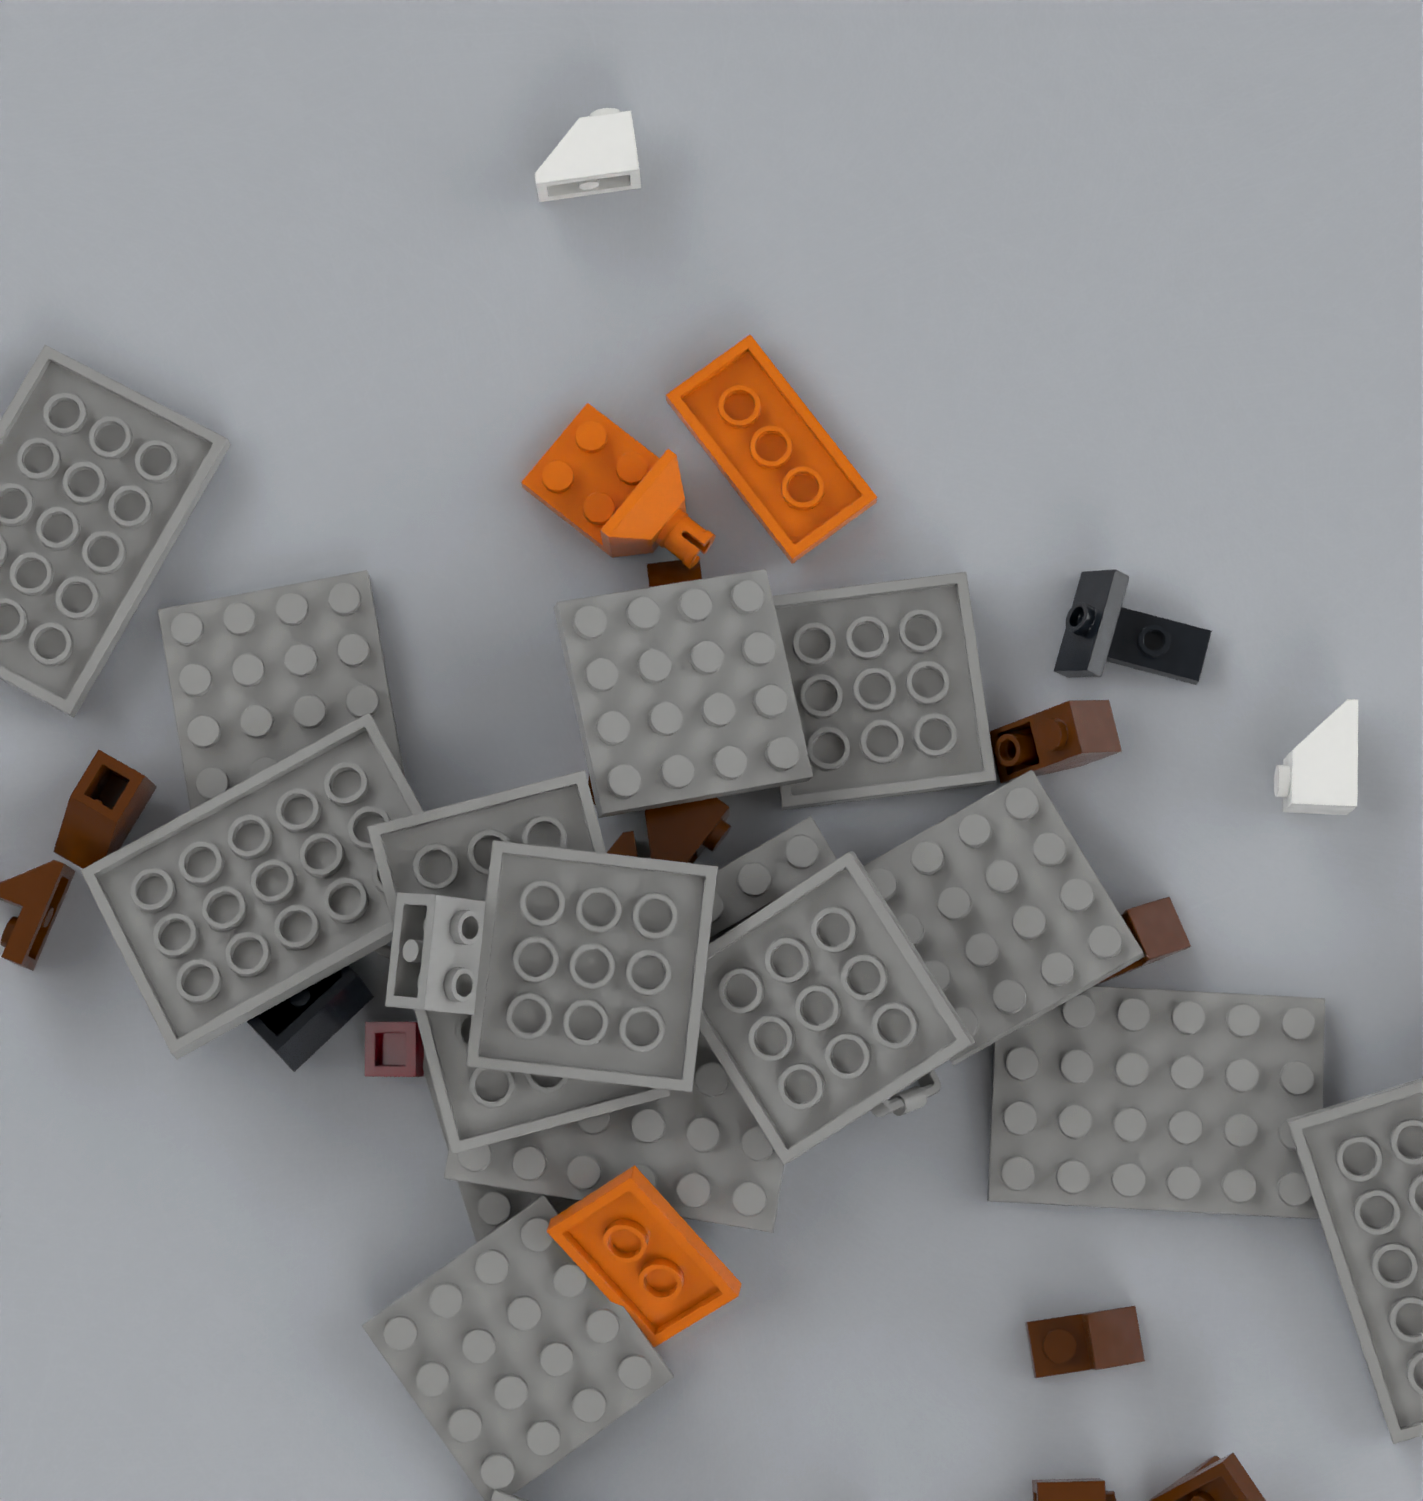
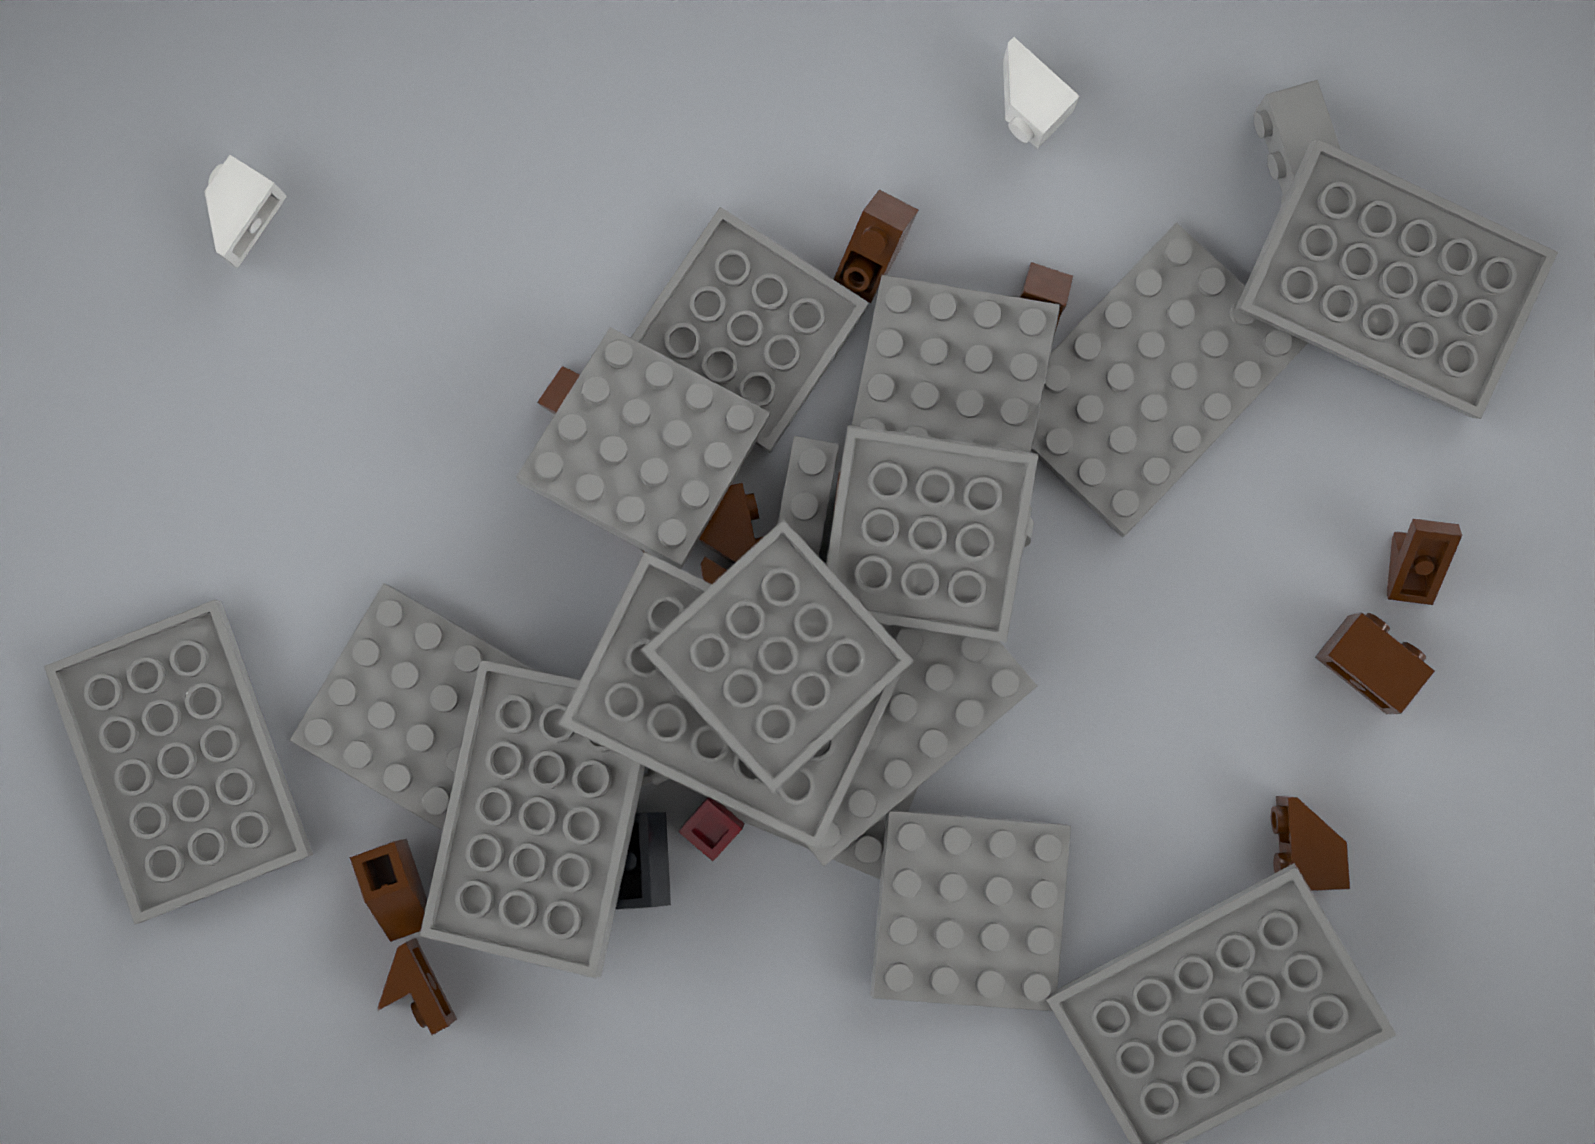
camera: 50 degrees left, 5 degrees up
(440, 954) = (684, 750): light grey brick -> none
(617, 491) = (473, 379): orange plate -> none
(644, 1256) = (982, 780): orange plate -> none
(771, 449) = (531, 259): orange plate -> none
(1084, 1342) = (1260, 552): reddish brown slope -> none
(1091, 623) = (821, 158): black plate -> none
(1159, 646) = (865, 134): black plate -> none

